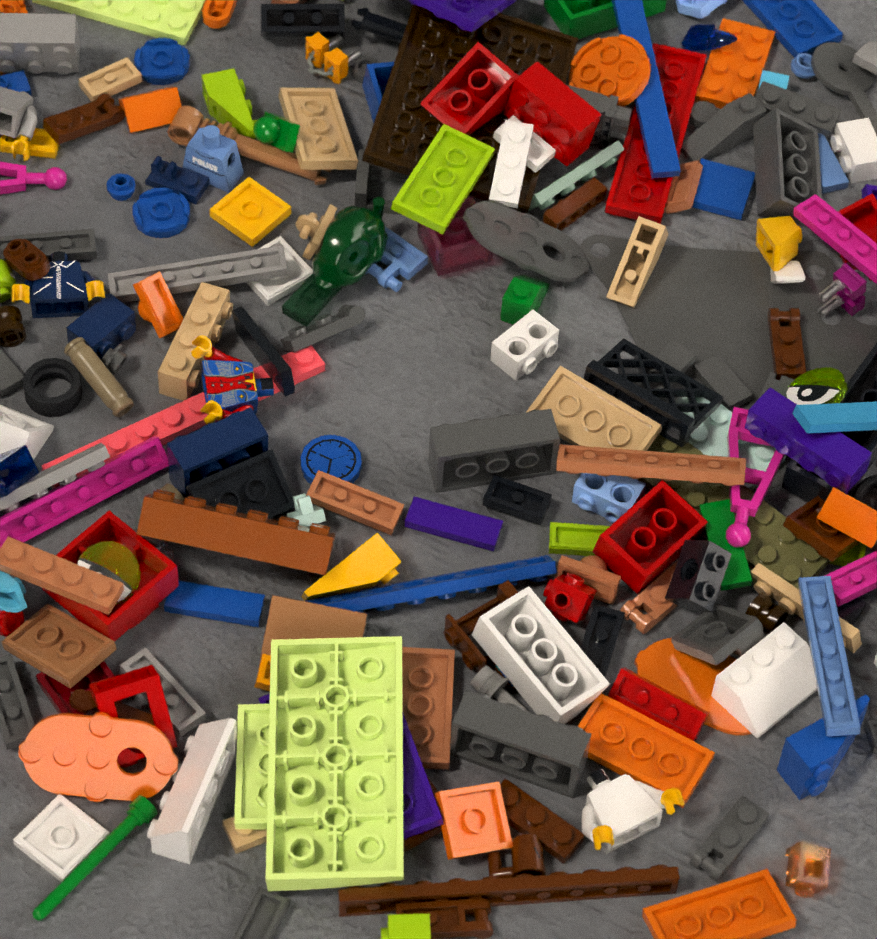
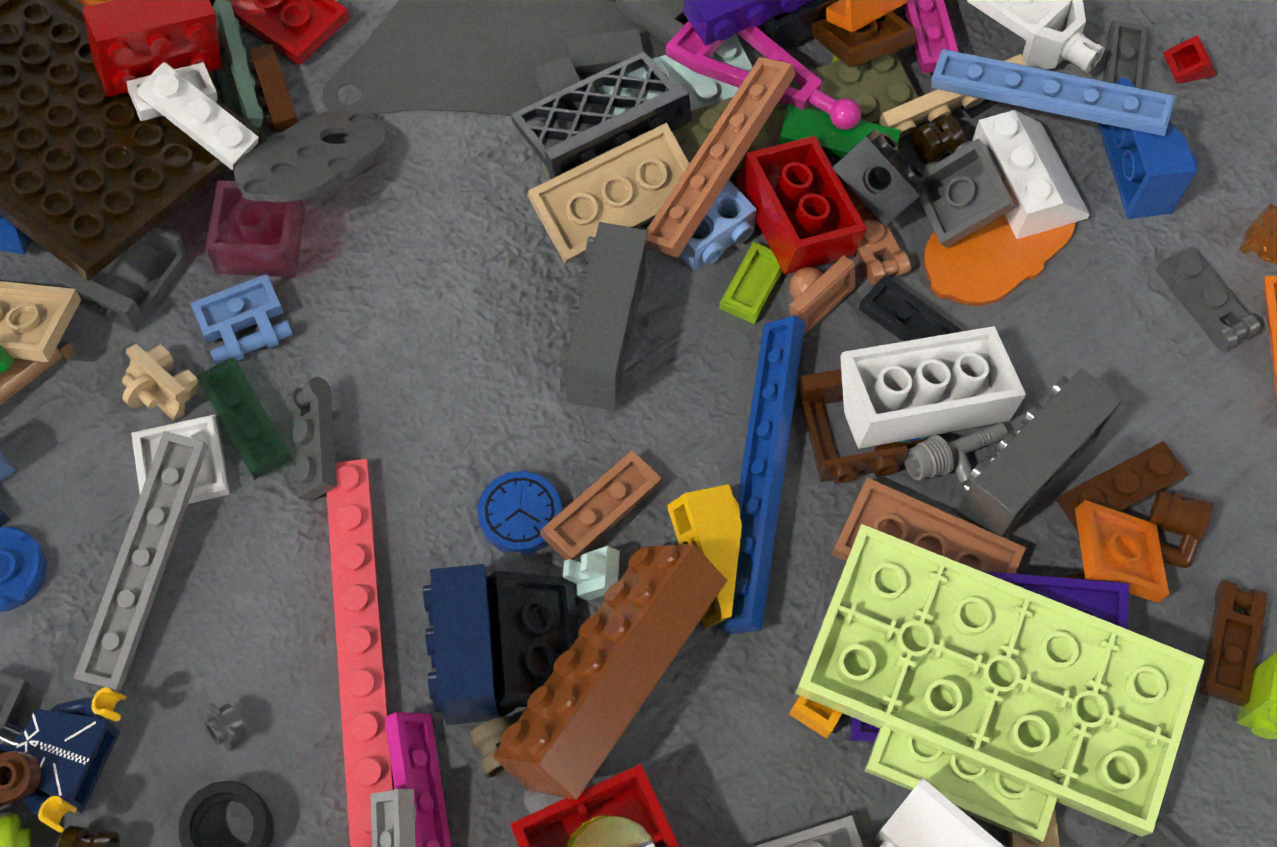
camera: 65 degrees left, 10 degrees up
(98, 377) = (247, 756): dark tan axle -> none
(104, 325) = (163, 722): dark blue brick -> none
(158, 305) = (169, 629): orange tile -> none
(205, 317) = (251, 605): tan brick -> none
(216, 603) = (680, 733): blue tile -> none
(227, 382) = (364, 588): torso -> none
(250, 211) = (69, 454): yellow plate -> none
(263, 351) = (322, 522): black tile -> none
(308, 620) = (780, 633): medium nougat tile -> none
(350, 246) = (212, 352): dark green piece -> none
(442, 179) = (180, 198): lime plate -> none
(453, 523) = (674, 408): dark purple tile -> none
(471, 91) = (66, 107): red slope -> none
(514, 891) = (1215, 565): reddish brown plate -> none
(517, 499) = (674, 324): black plate -> none
(522, 297) = (387, 197): green slope -> none
(524, 345) = (453, 224): white brick -> none
(568, 597) = (845, 322): red brick -> none
(623, 809) = (1154, 387): white torso -> none
(638, 261) = (398, 57): tan slope -> none
(643, 748) = (1074, 332): orange plate -> none
(658, 704) = (1020, 292): red plate -> none

